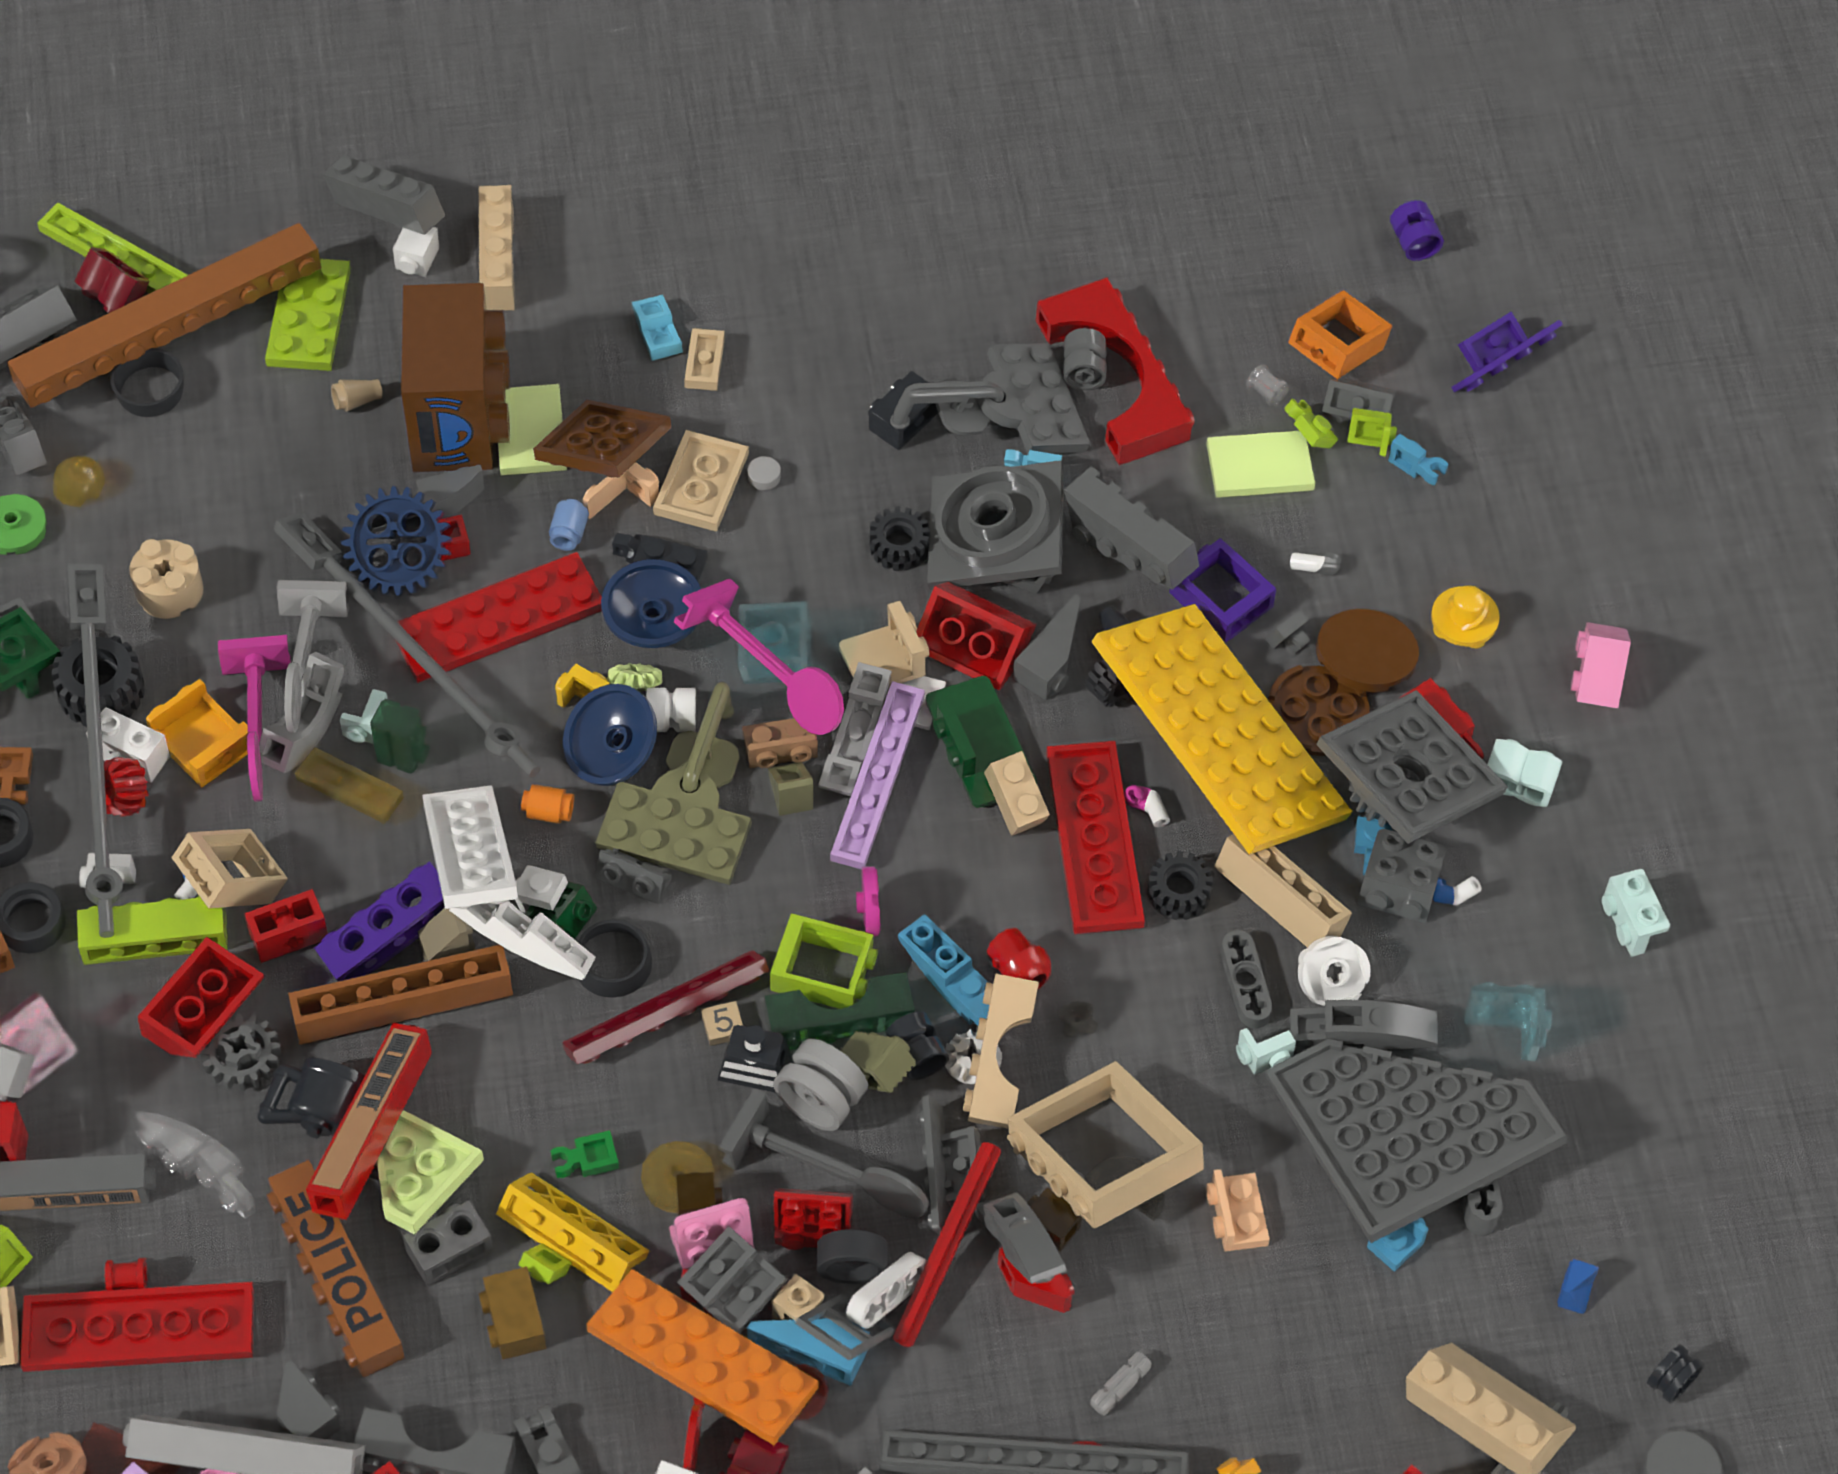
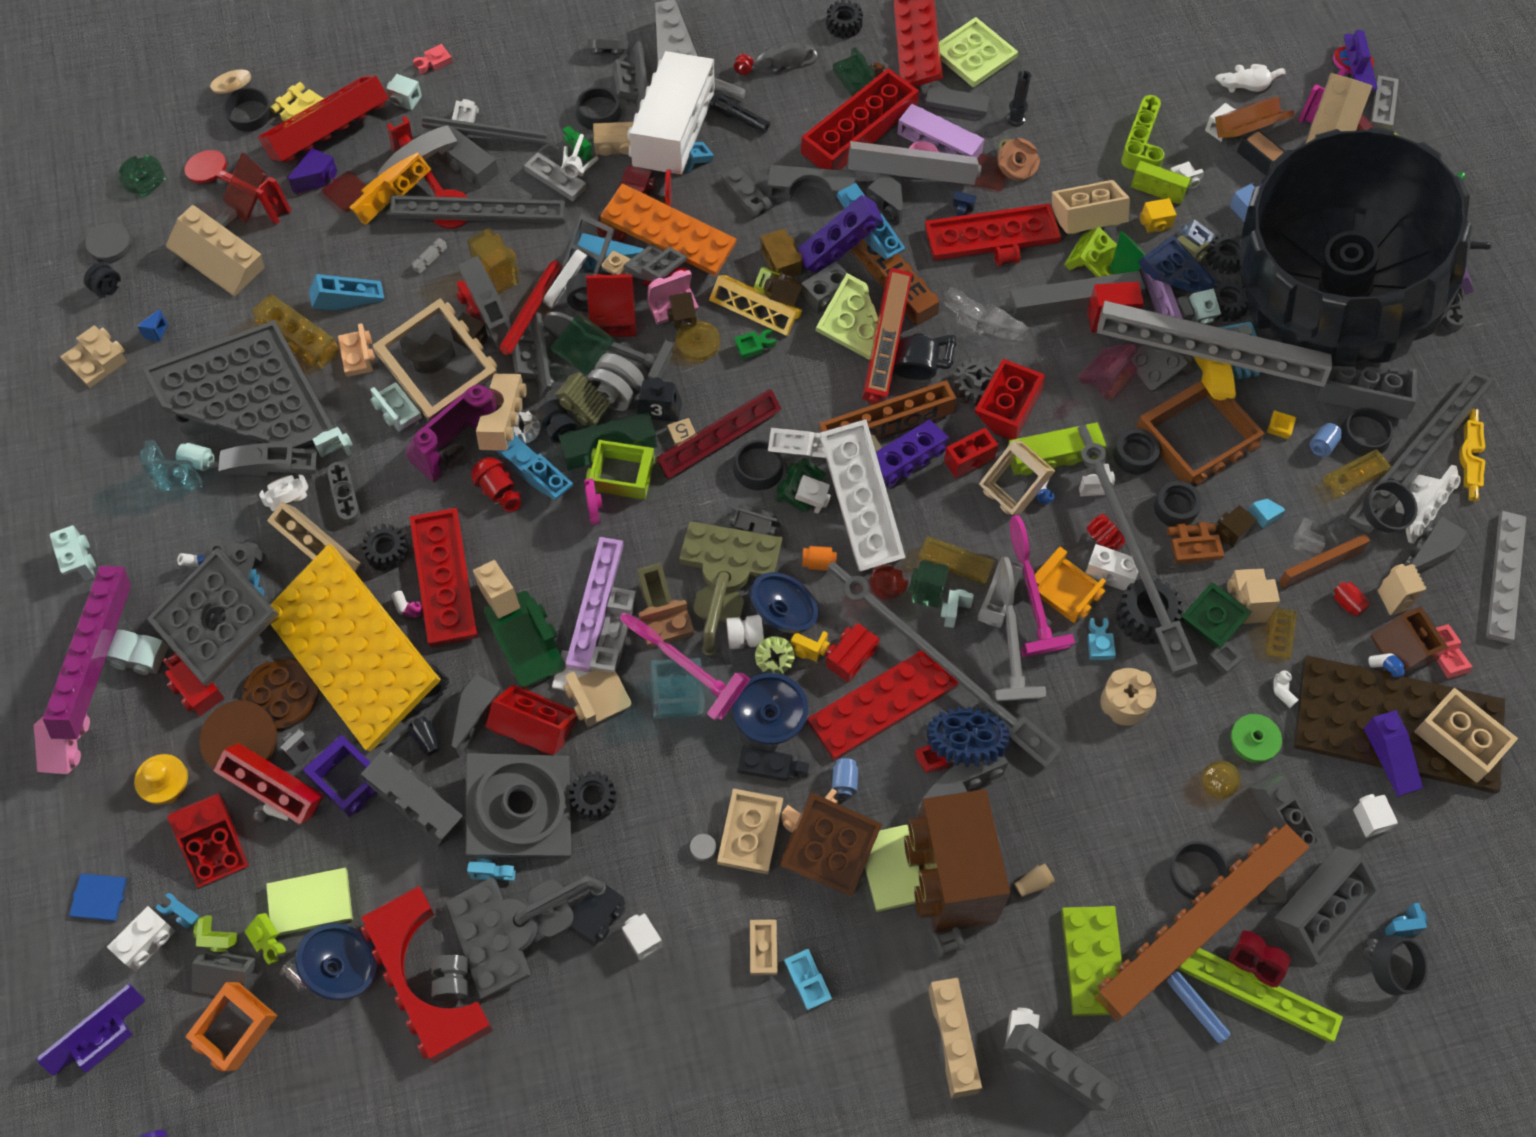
camera: 175 degrees right, 5 degrees up
(170, 1386) = (963, 202): none -> dark blue tile
(177, 660) = (1100, 643): none -> medium azure plate
(193, 243) = (1198, 1007): none -> medium blue axle
(351, 1314) = (881, 240): none -> dark azure slope
(408, 1289) = (840, 234): none -> dark purple brick
(455, 755) = (887, 582): none -> clear red hair
(524, 1230) = (782, 288): none -> dark brown brick
(526, 674) = (851, 652): none -> red brick
(850, 381) = (641, 936): none -> white brick
(866, 1151) = (582, 343): none -> clear green plate
(989, 932) = (510, 501): none -> red plate
(1007, 1329) = (496, 259): none -> clear yellow brick
(1105, 1032) = (463, 411): none -> magenta windscreen
(1174, 1091) = (396, 406): none -> light aqua bracket
(1211, 370) = (344, 951): none -> dark blue dish
(1261, 1313) = (343, 292): none -> dark azure slope
(1319, 576) = (268, 783): none -> red brick
(1373, 1293) = (300, 334): none -> clear yellow brick
(1396, 541) = (208, 839): none -> red slope
(1461, 433) = (141, 939): none -> white brick
(1477, 1049) = (199, 456): none -> light aqua brick
(1525, 498) = (98, 897): none -> blue piece
(1578, 742) = (87, 653): none -> magenta brick
(1666, 1245) = (94, 356): none -> tan plate

